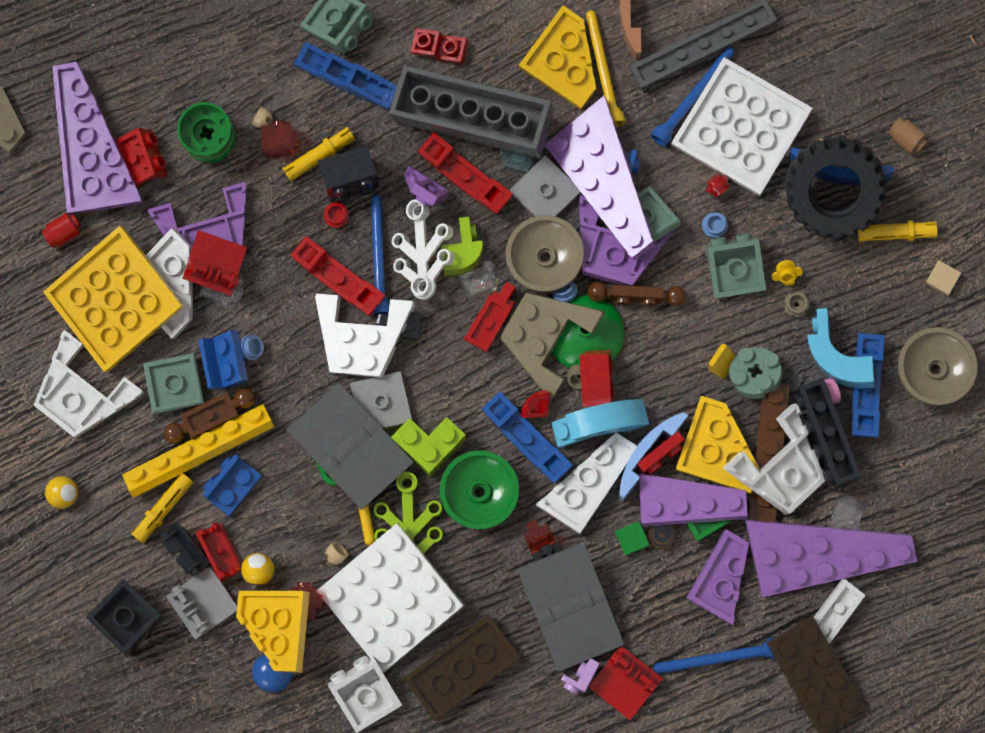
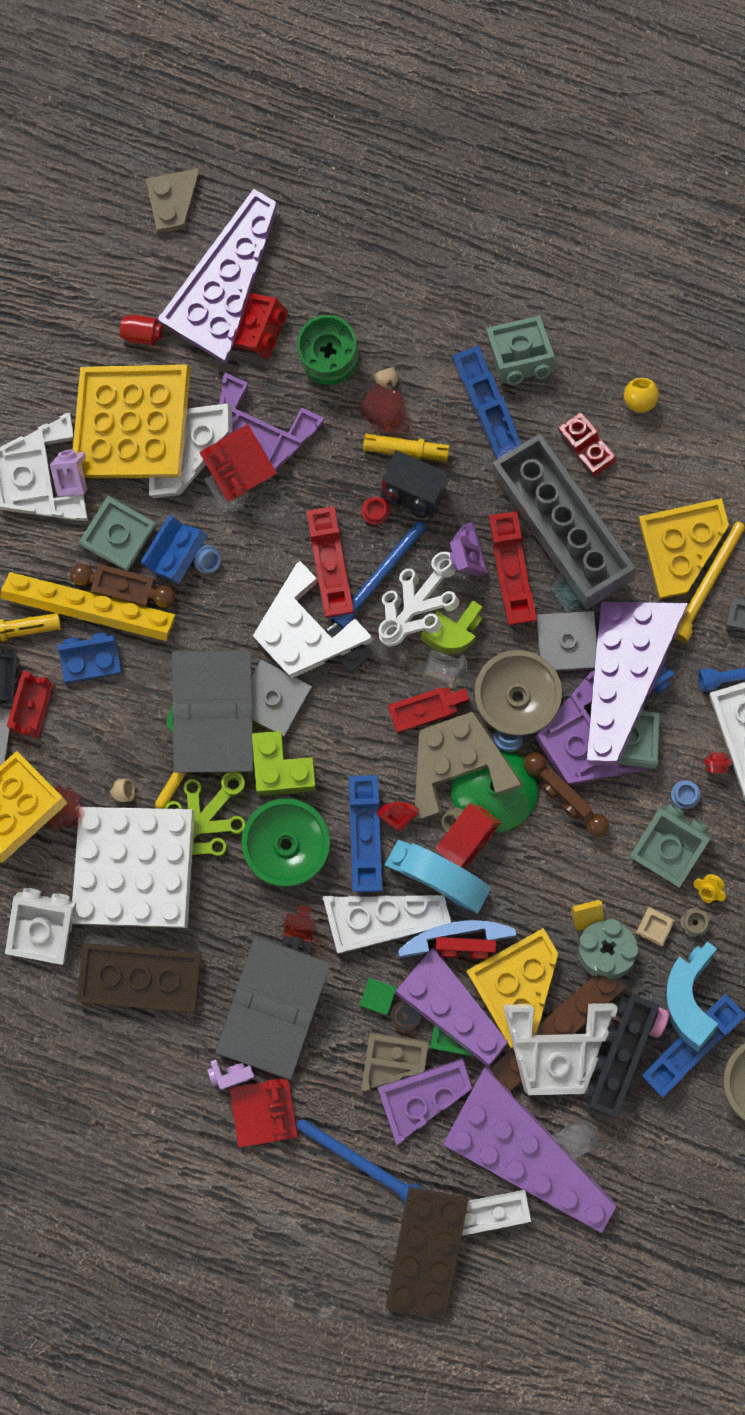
camera: 35 degrees right, 0 degrees up
(103, 370) = (68, 473): none -> lavender bracket
(257, 568) = (47, 746): yellow piece -> none
(679, 571) = (392, 1058): none -> dark tan wing
(772, 330) = (655, 926): none -> tan tile

